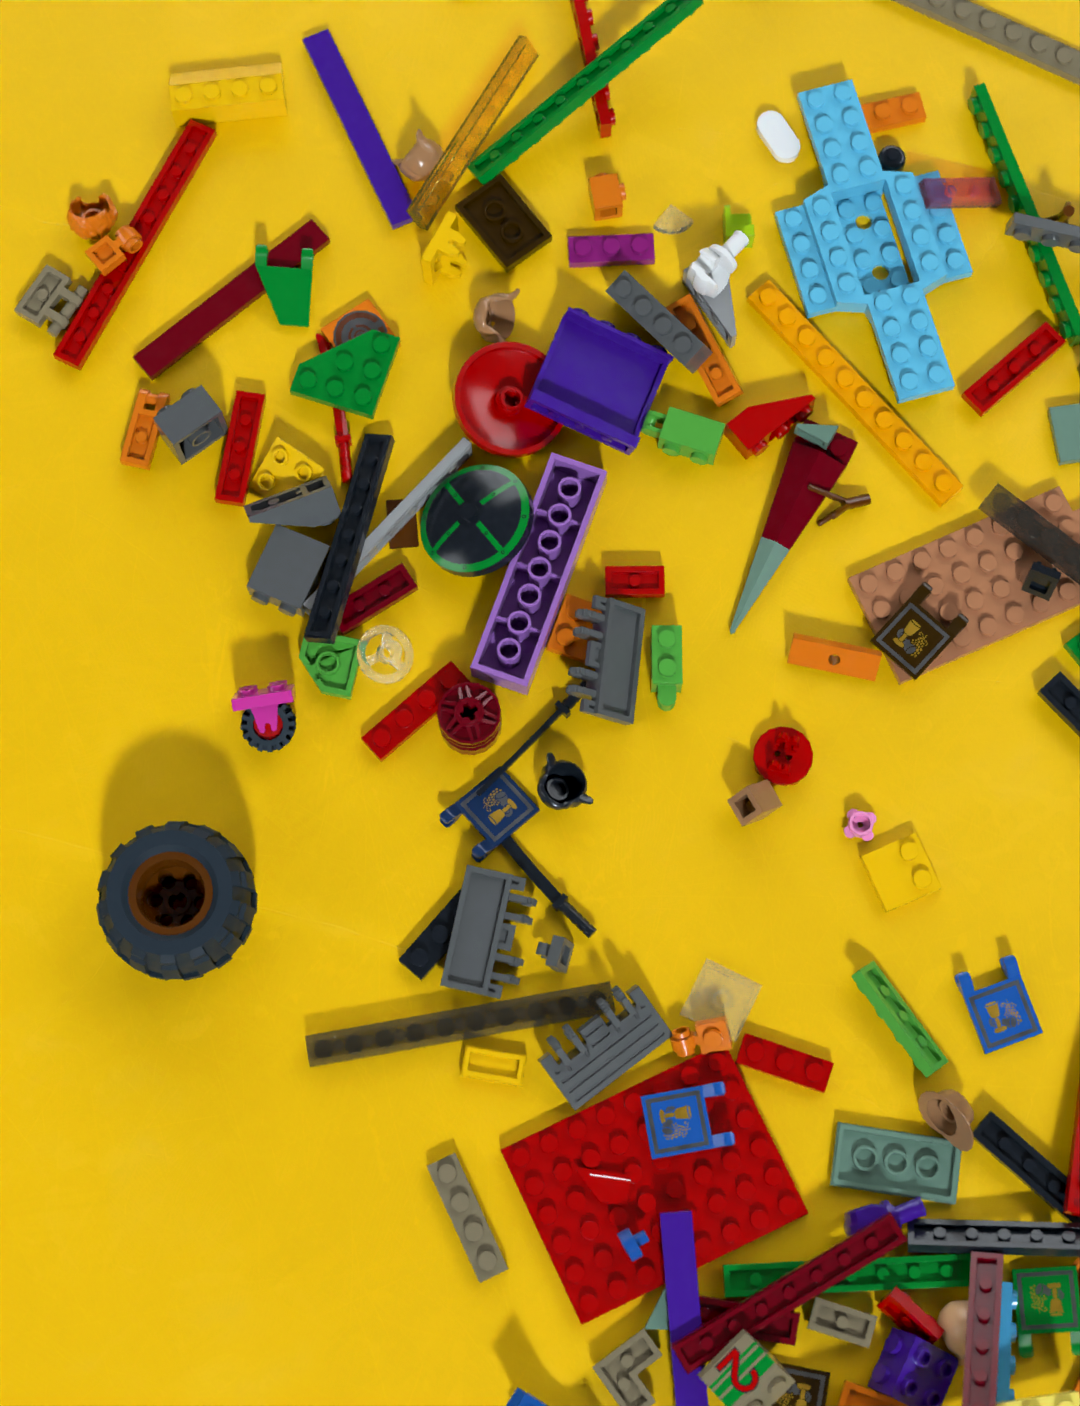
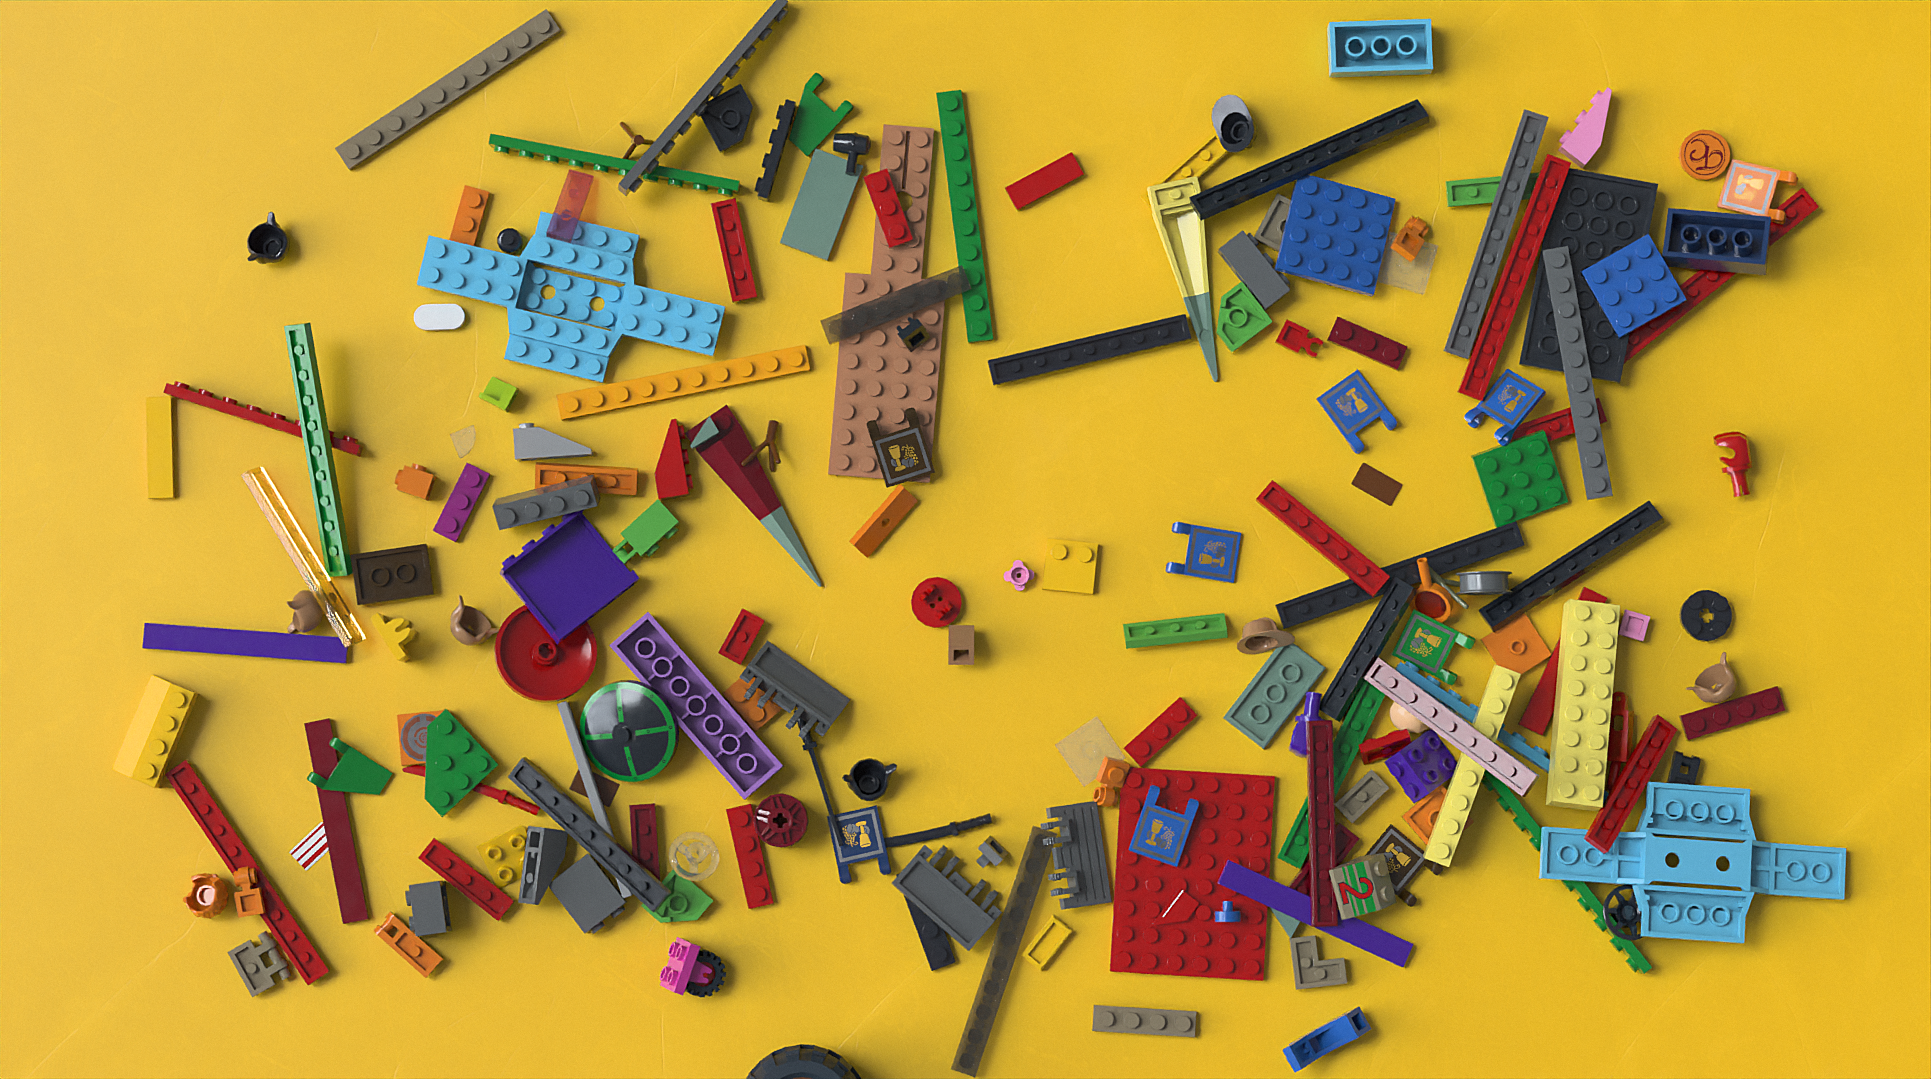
camera: 60 degrees left, 10 degrees up
(191, 291) = (311, 847): none -> sticker
(666, 663) = (820, 650): bright green brick -> none
(713, 267) = (528, 435): white piece -> none

